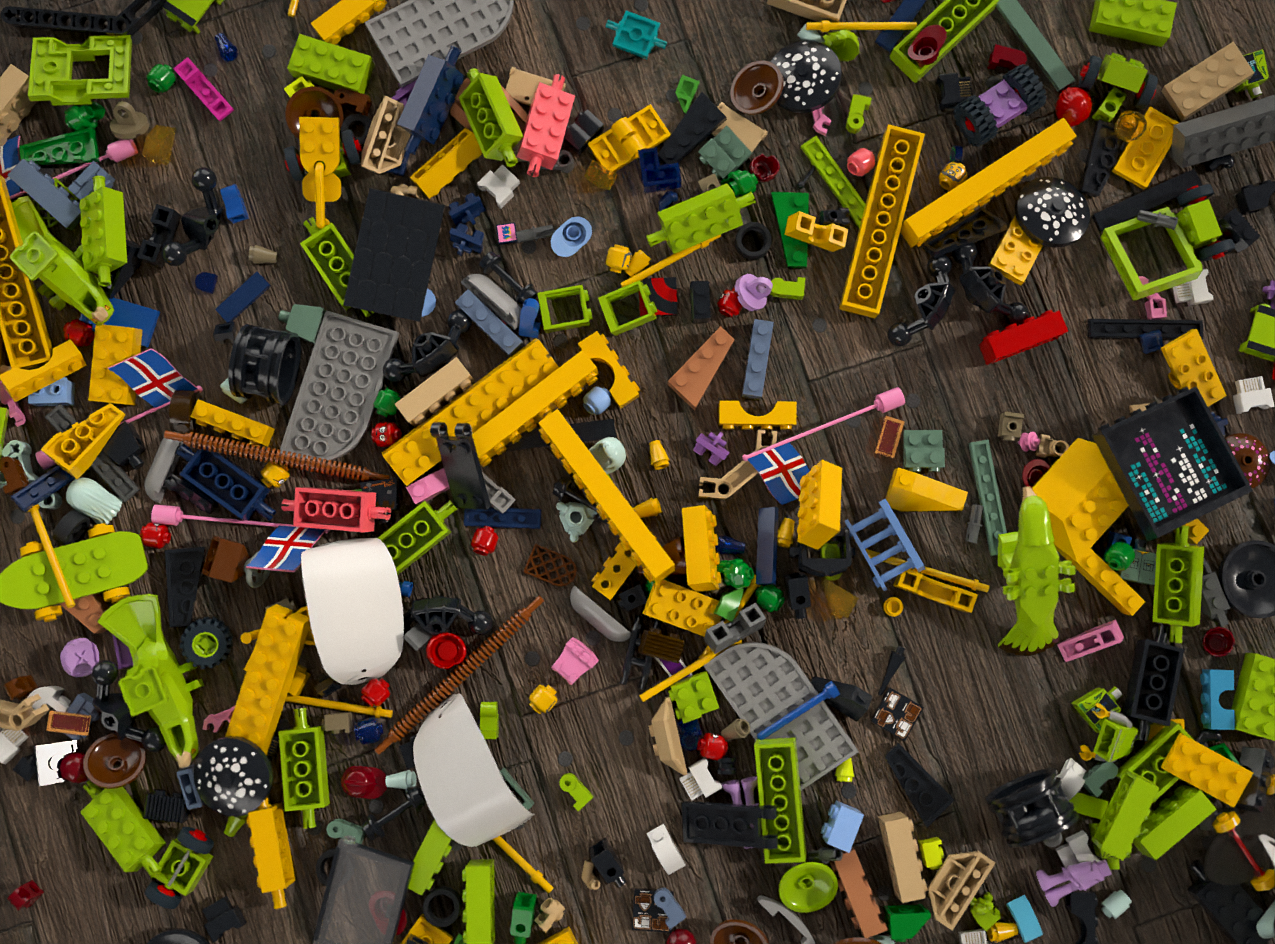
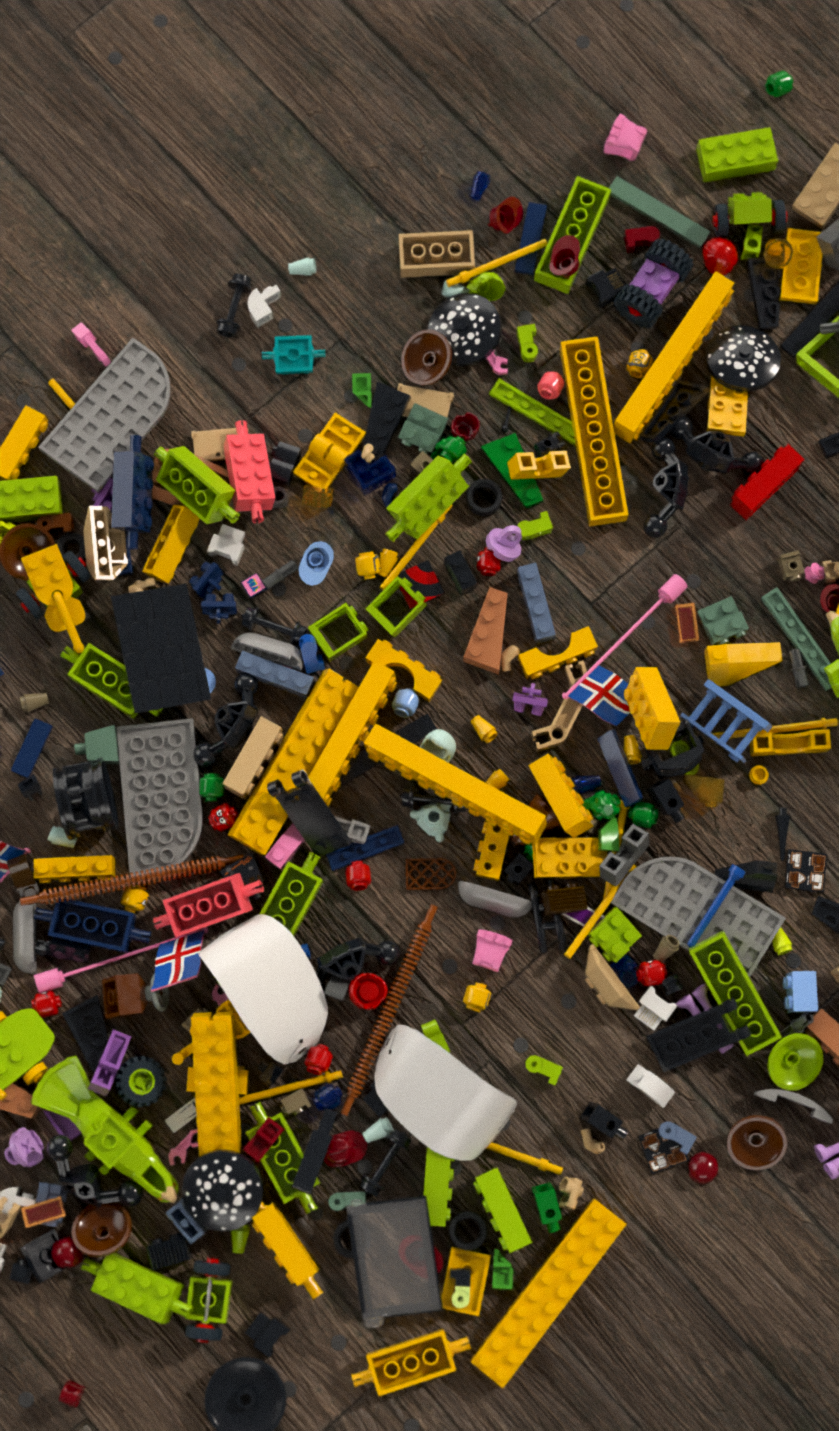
camera: 25 degrees left, 5 degrees down
(186, 613) = (109, 1063): none -> medium lavender slope
(229, 689) = (182, 1116): none -> white sticker
(290, 746) = (263, 1140): none -> dark red slope
(331, 779) = (314, 1154): none -> black piece
(662, 154) = (367, 453): none -> tan arm
(709, 397) = (507, 655): none -> tan arm
(956, 154) = (633, 342): clear blue tile -> none

